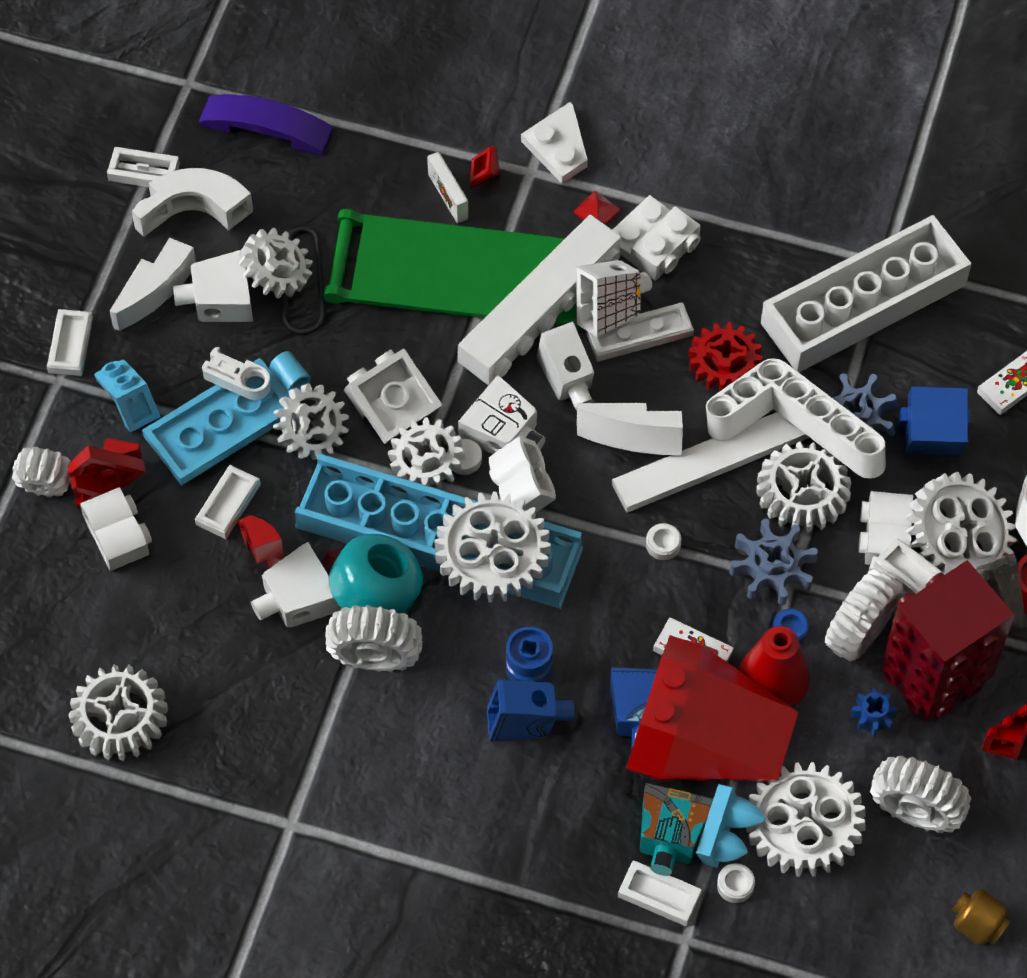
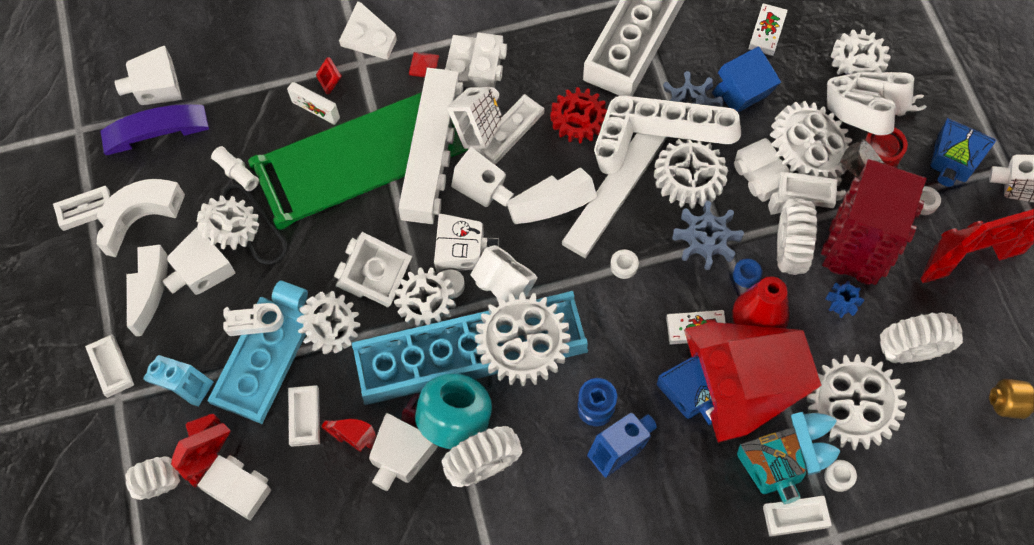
camera: 30 degrees left, 5 degrees up
(296, 68) = (151, 78): none -> white torso
(320, 212) = (235, 168): none -> white pin

